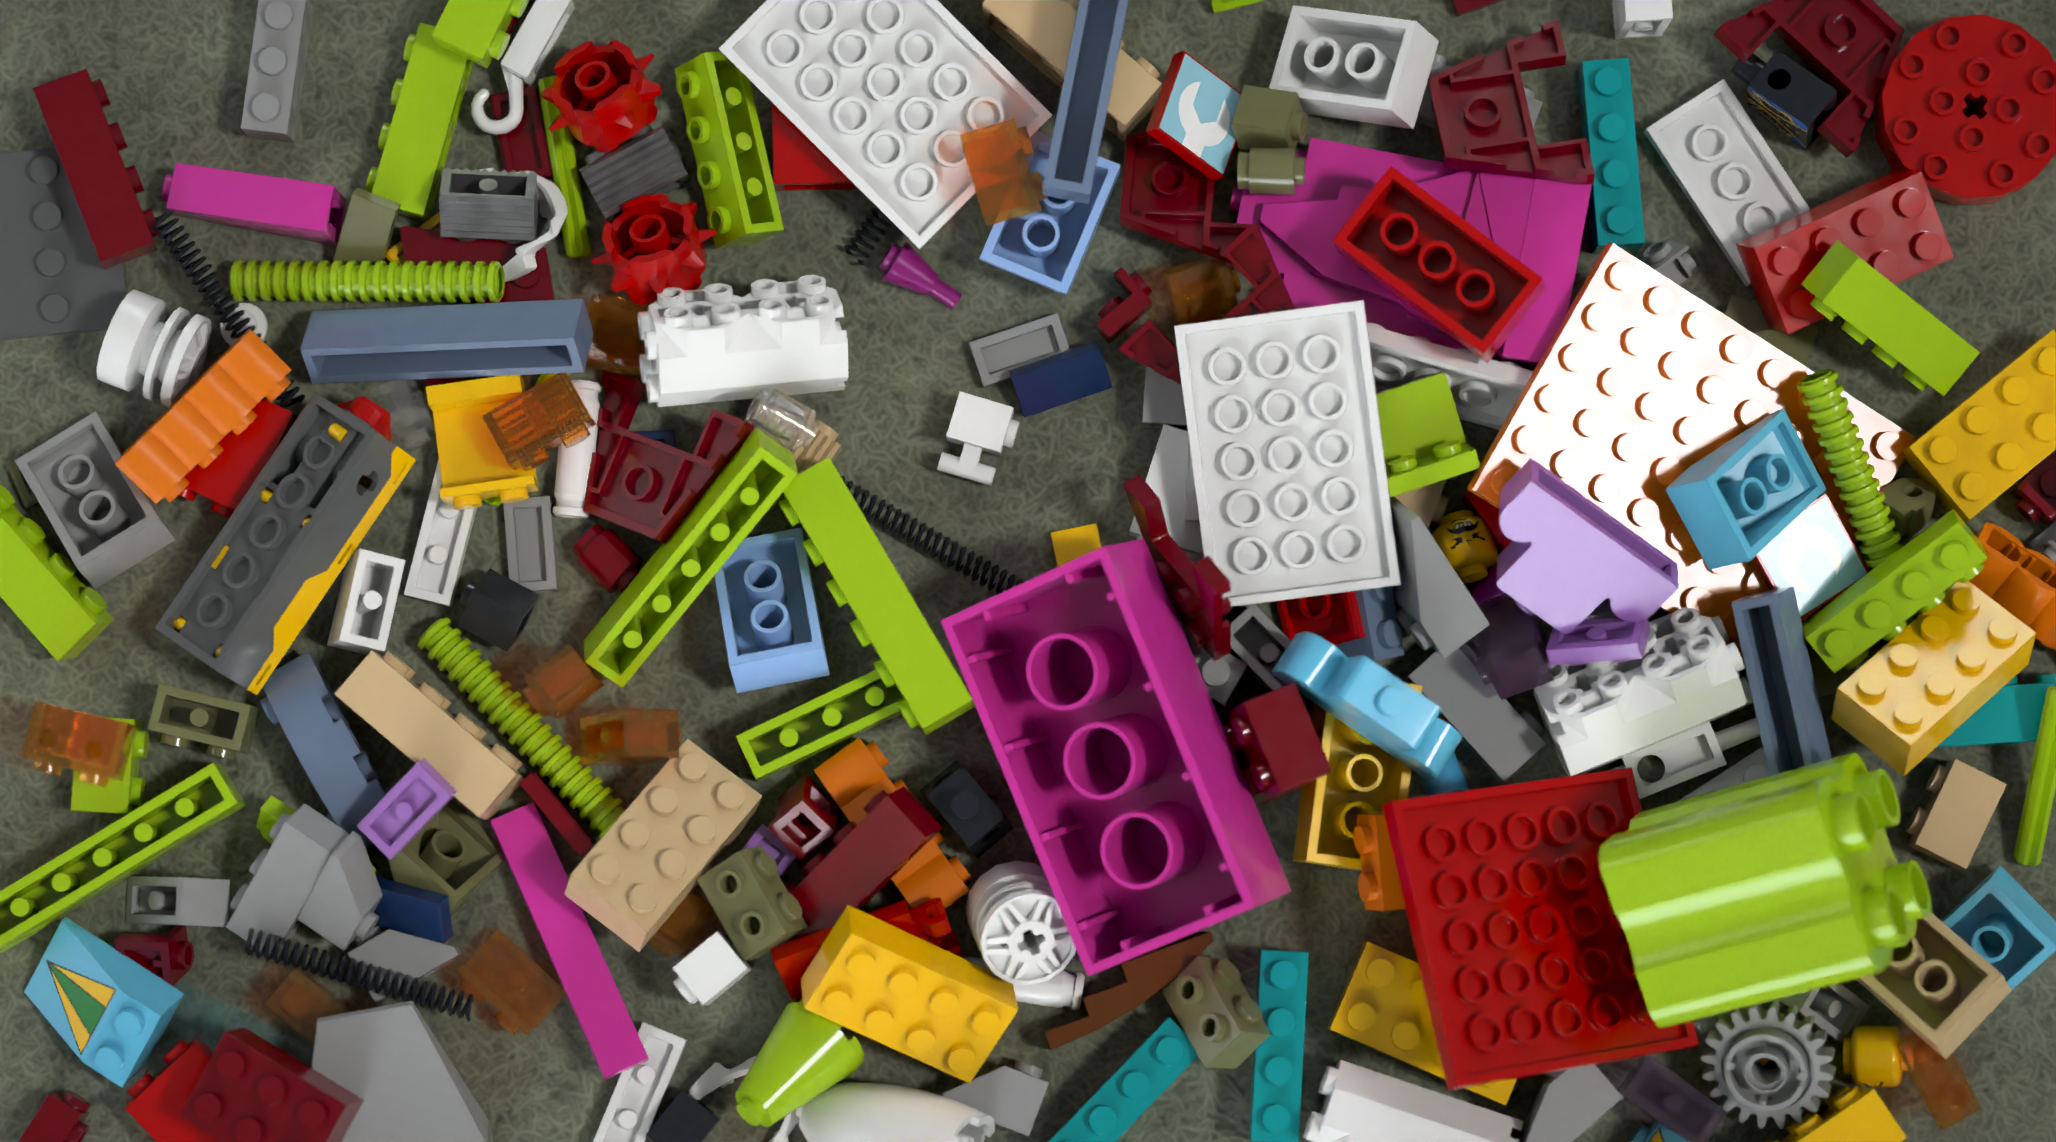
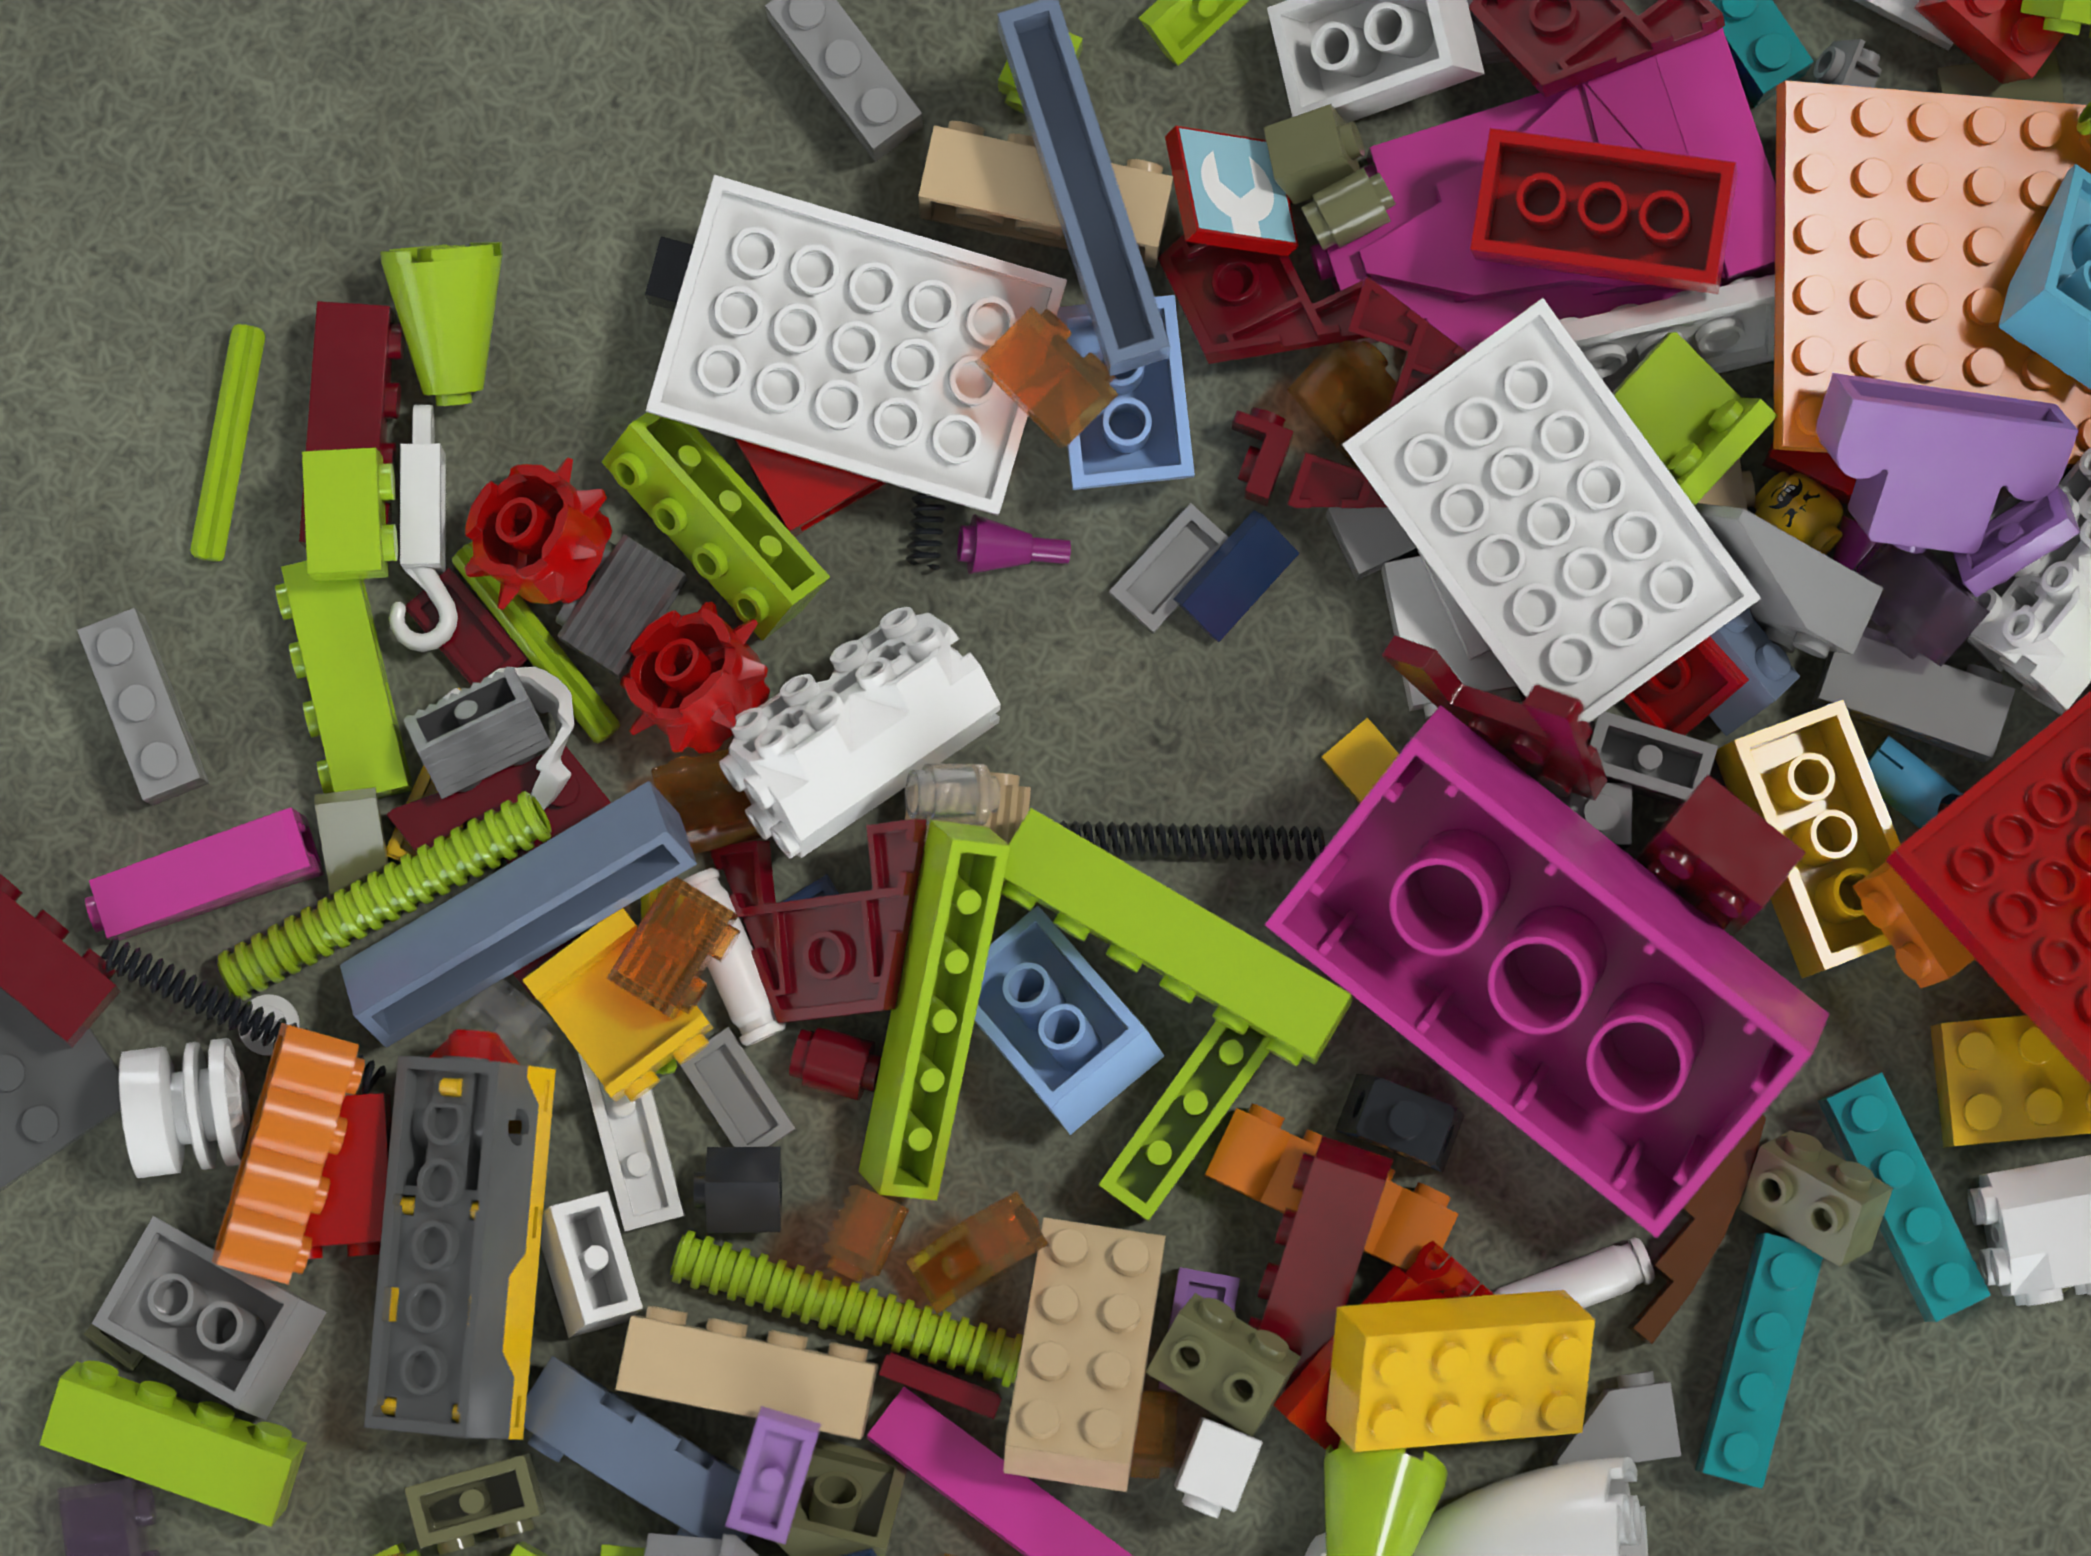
camera: 30 degrees left, 0 degrees up
(804, 817) = (1225, 1234): dark red brick -> none
(979, 428) = (1174, 681): white brick -> none
(1003, 907) = (1538, 1219): white wheel -> none
(1370, 702) = (1800, 750): medium azure brick -> none

